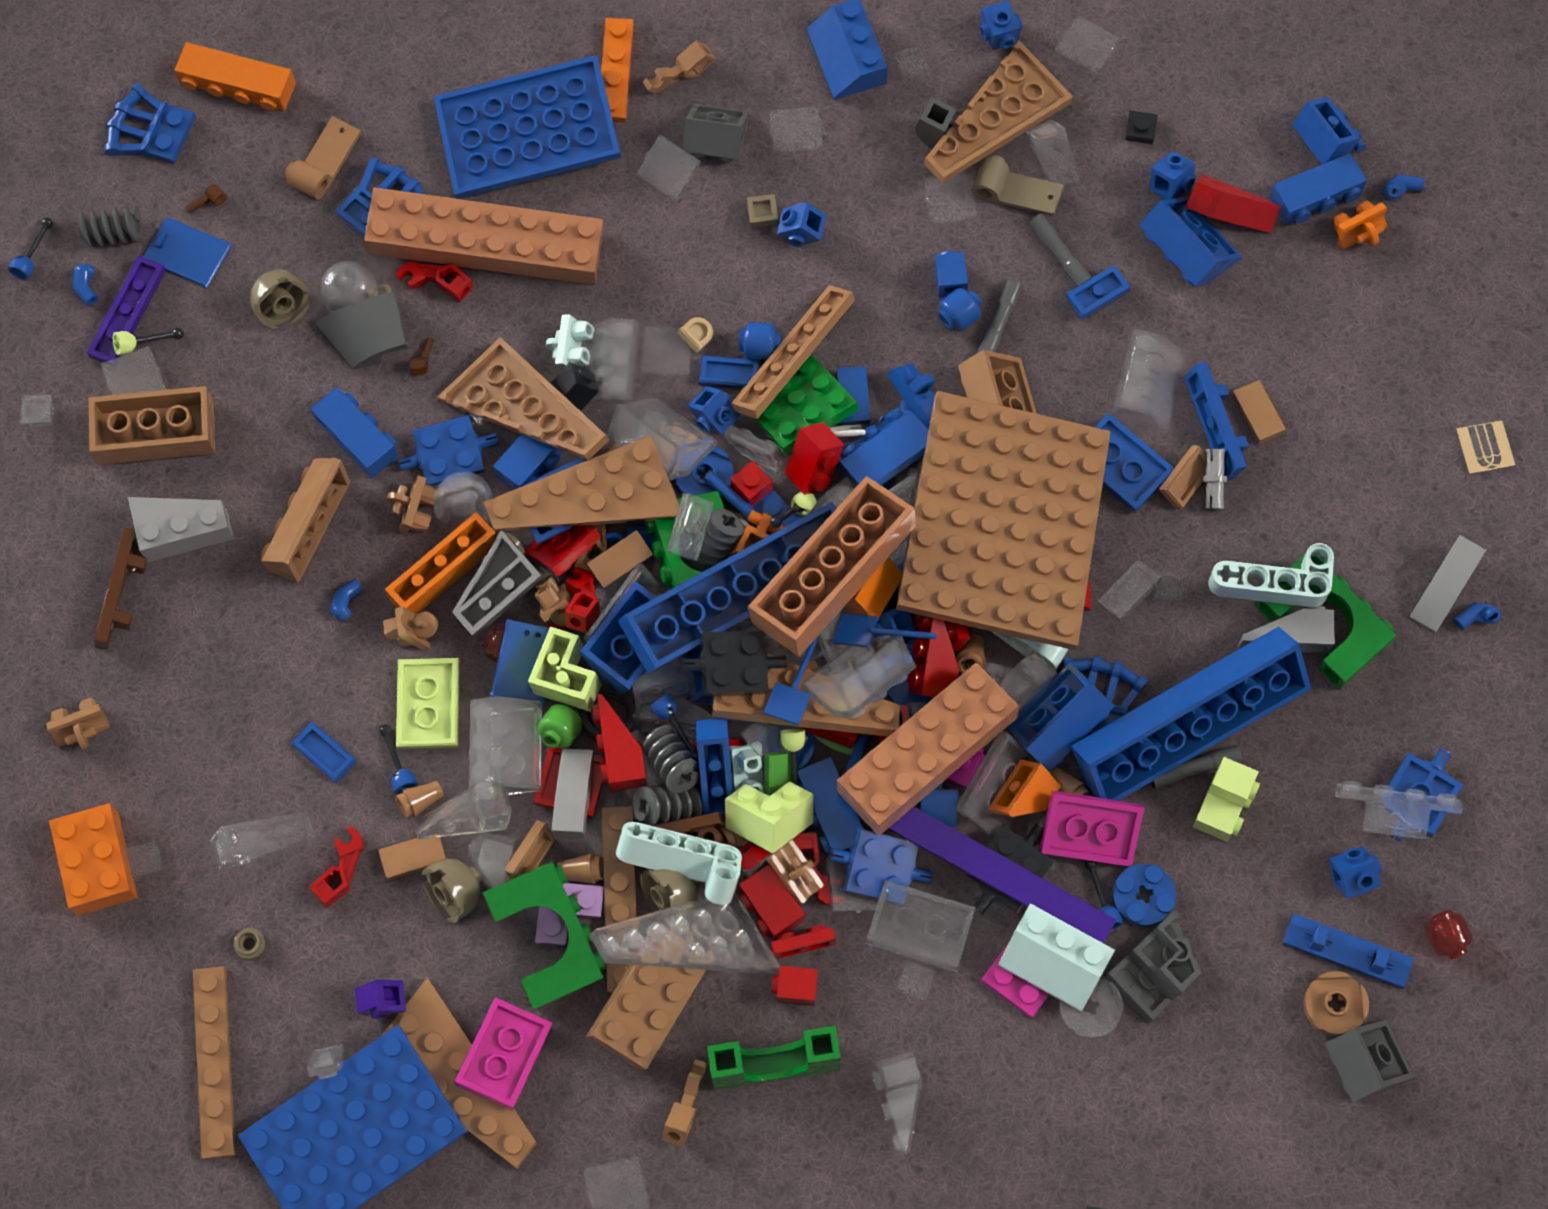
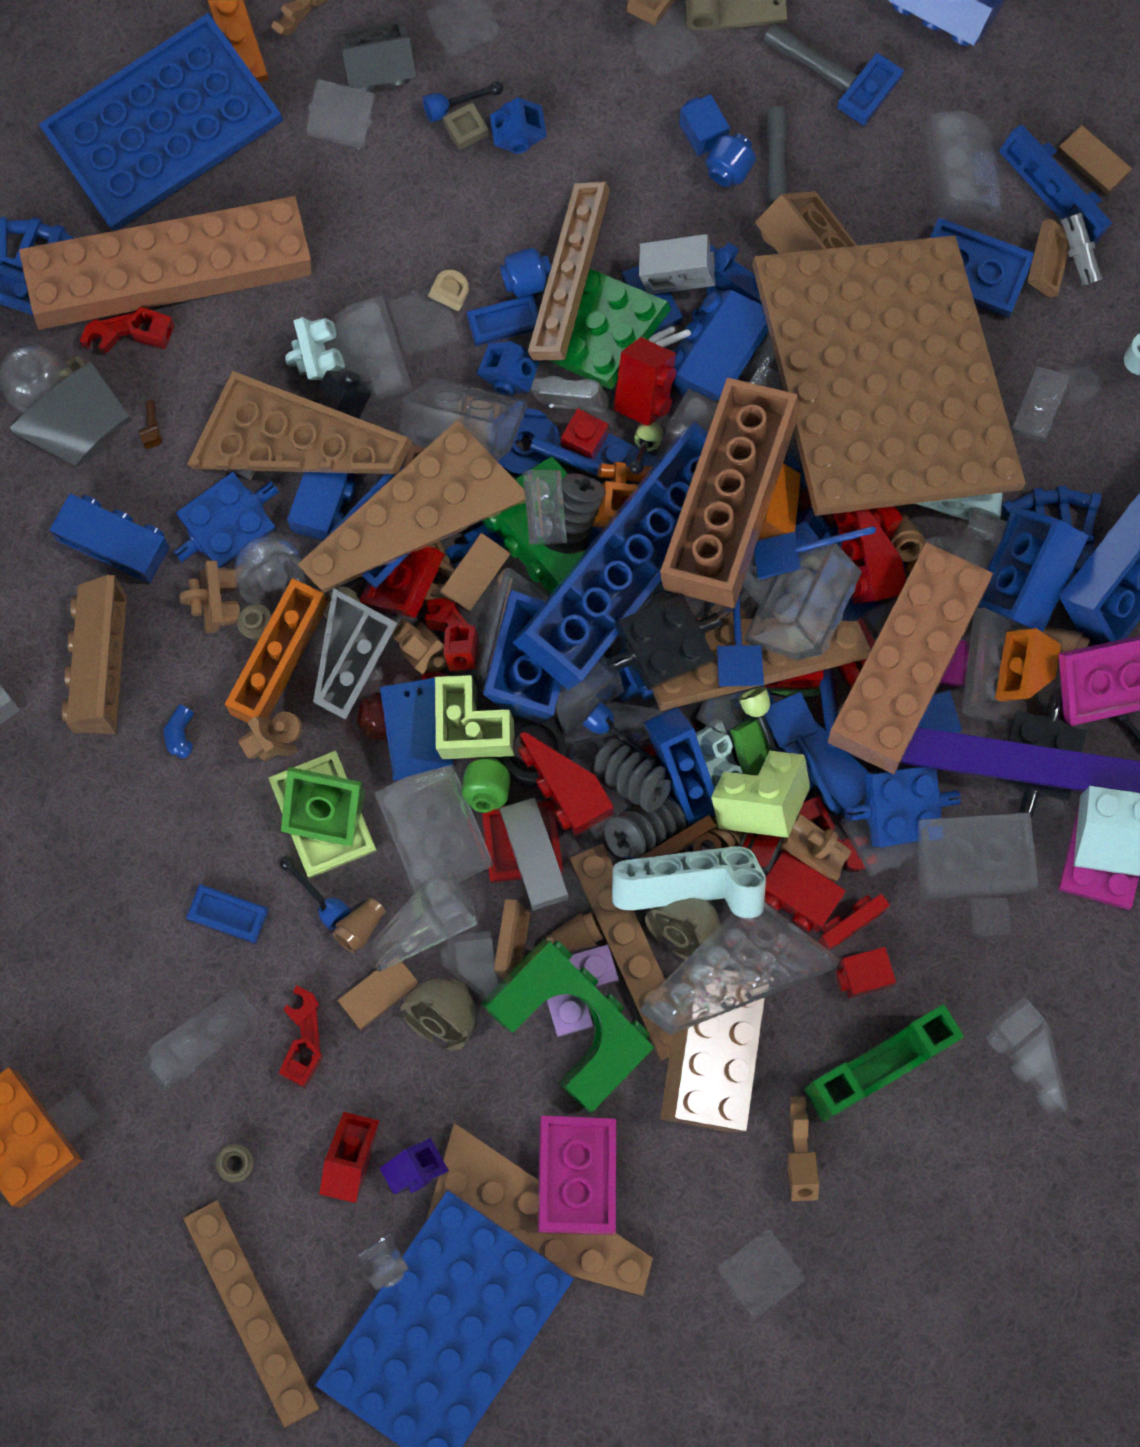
camera: 25 degrees left, 5 degrees up
(335, 972) = (348, 1157): none -> red slope
(427, 695) = (322, 806): none -> bright green slope
(434, 534) = (253, 621): none -> dark tan plate
(748, 187) = (438, 106): none -> hinge
(816, 766) = (791, 722): none -> blue piece
(879, 376) = (677, 264): none -> light grey hinge

